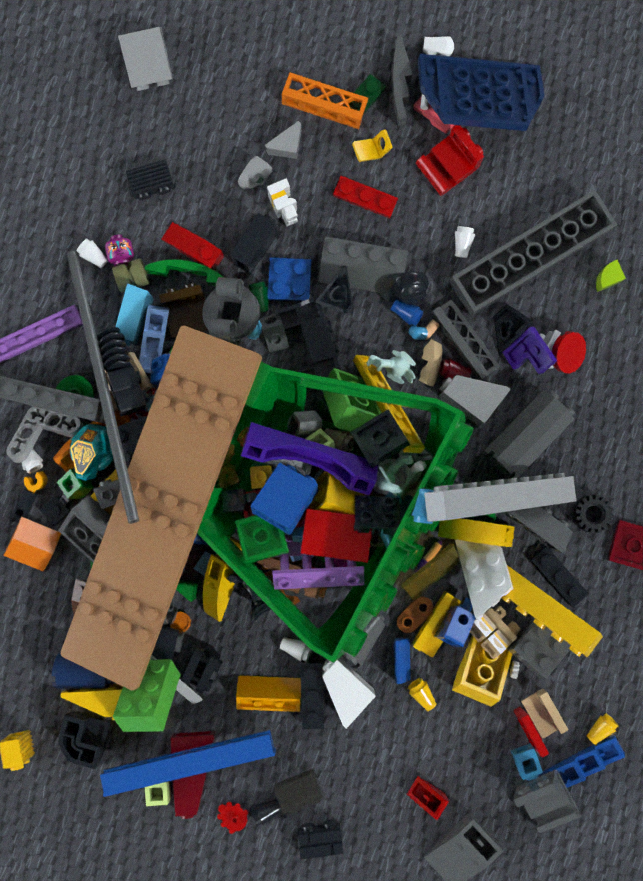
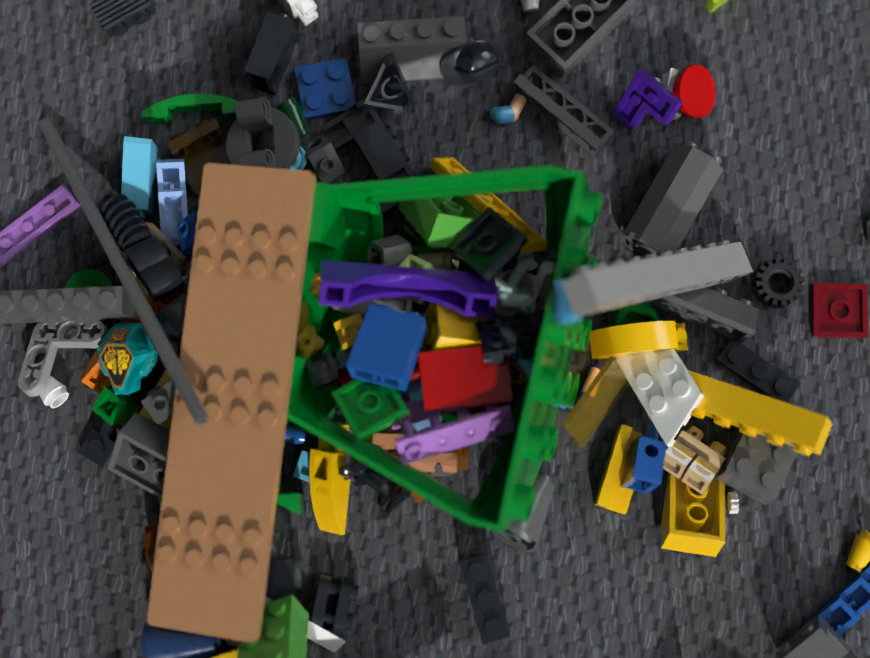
camera: 15 degrees left, 5 degrees down
(28, 495) = (59, 440): piece -> none
(32, 544) = (78, 497): orange slope -> none
(89, 251) = (68, 114): white cone -> none
(119, 250) = (104, 104): magenta head -> none
(132, 274) = (127, 125): olive wheel -> none
(182, 621) = (294, 548): orange piece -> none
(193, 246) = (195, 76): red slope -> none
(268, 693) = (428, 613): light orange panel -> none
(296, 648) = (450, 545): white cone -> none
(347, 689) = (526, 579): white slope -> none
(396, 366) = (487, 159): light aqua piece -> none
(401, 660) = (587, 527): blue slope -> none
(409, 313) = (482, 92): blue cone -> none
(412, 612) = (588, 464): dark orange plate -> none
(422, 694) = (623, 562): yellow cone -> none
(433, 354) = (527, 135): tan slope -> none
(451, 368) = (558, 149): dark red cone -> none
(473, 397) = (601, 166): light grey slope -> none
(509, 326) = (612, 78): black slope -> none
(522, 754) = (791, 618): dark azure brick -> none
(530, 731) = (774, 574): red tile -> none
(544, 713) = (785, 549): tan panel -> none

